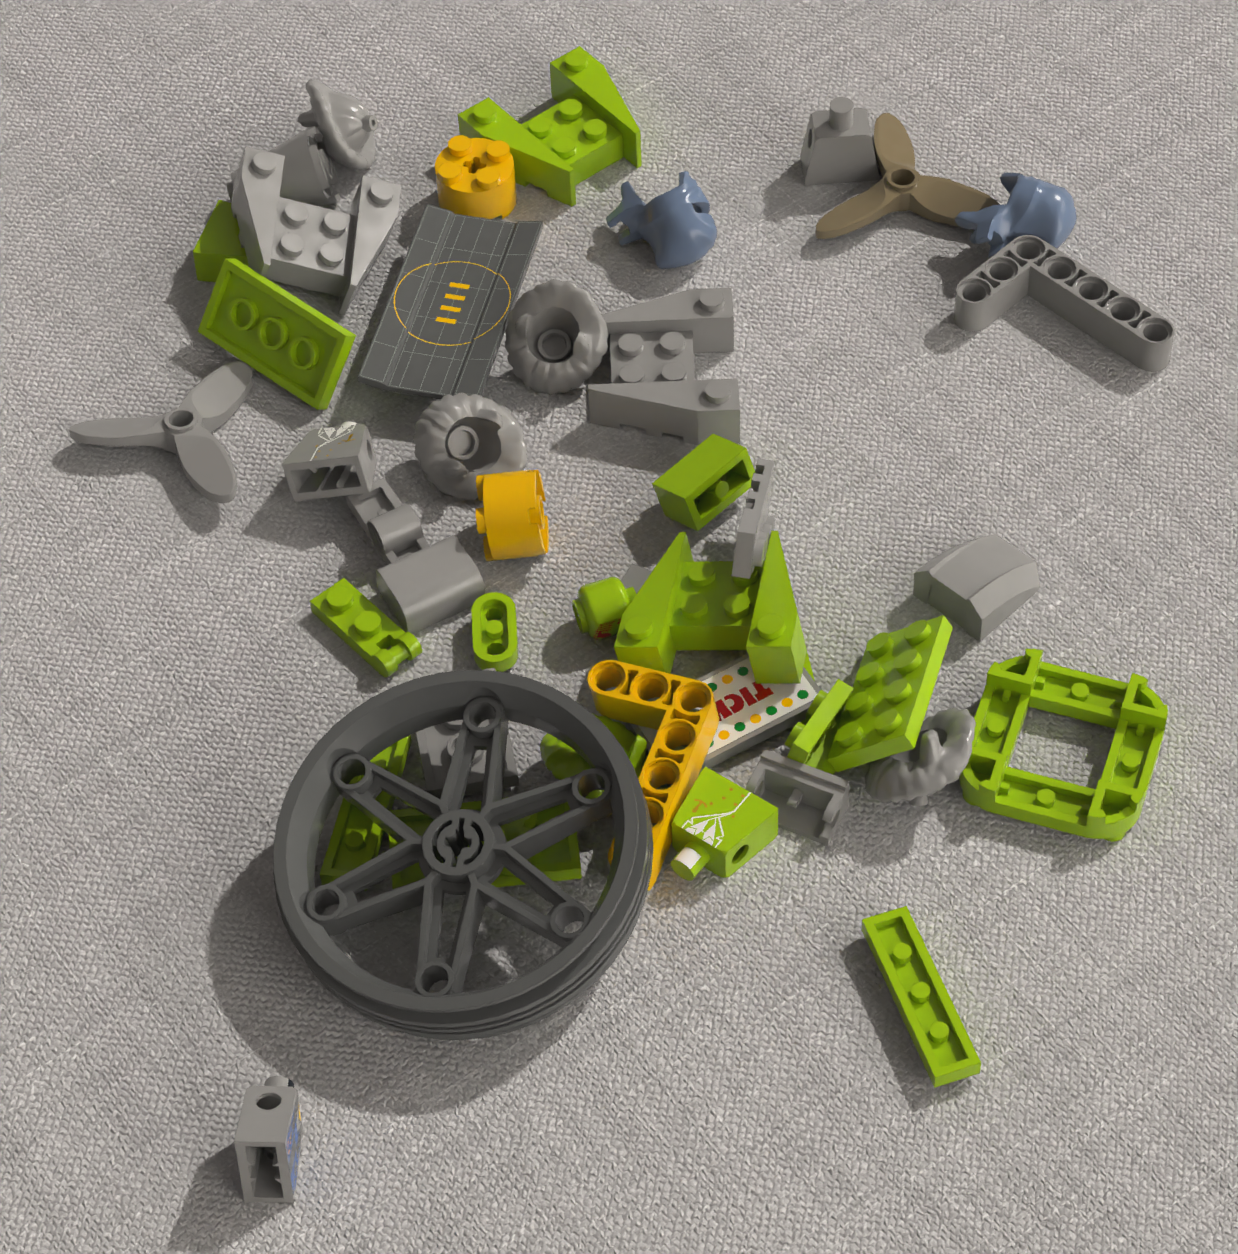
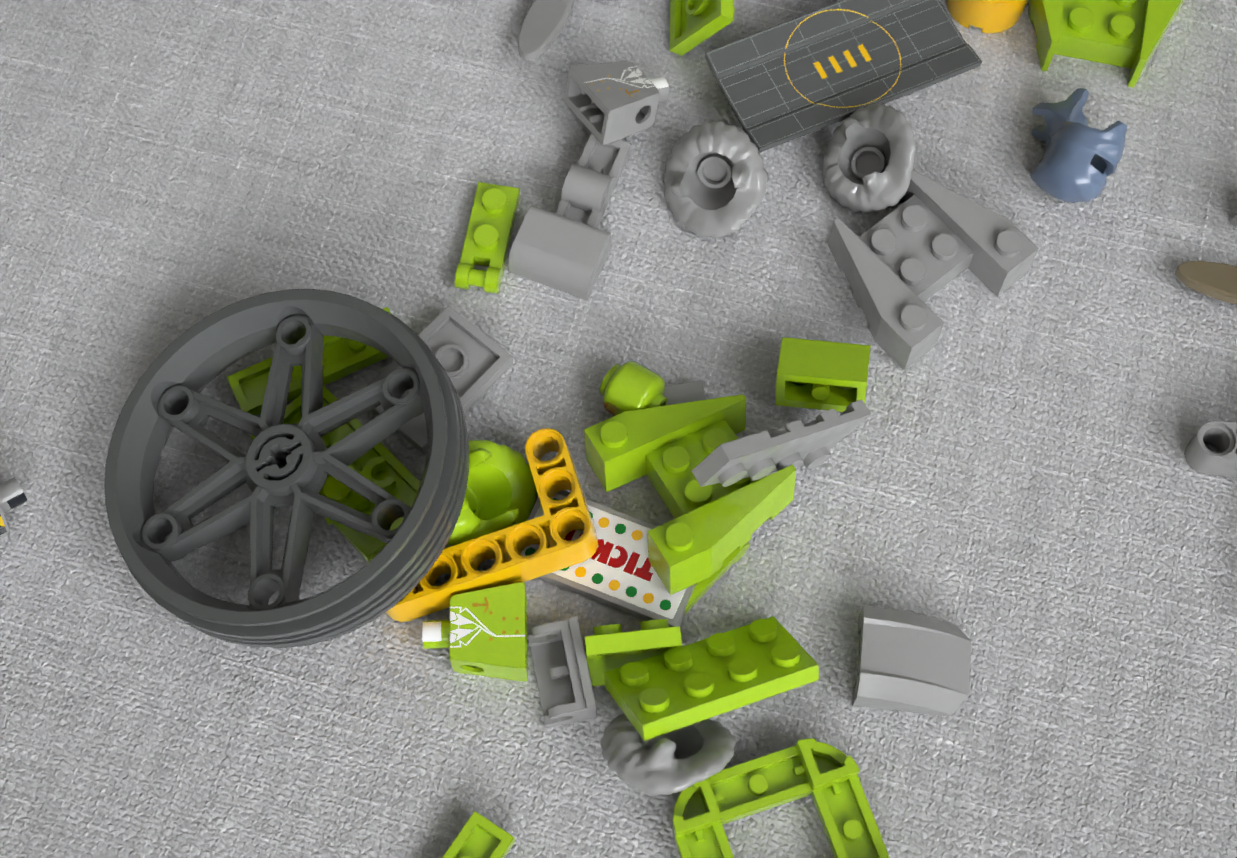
camera: 50 degrees right, 15 degrees up
(494, 635) = (550, 332): lime plate -> none
(512, 515) = (664, 259): yellow brick -> none

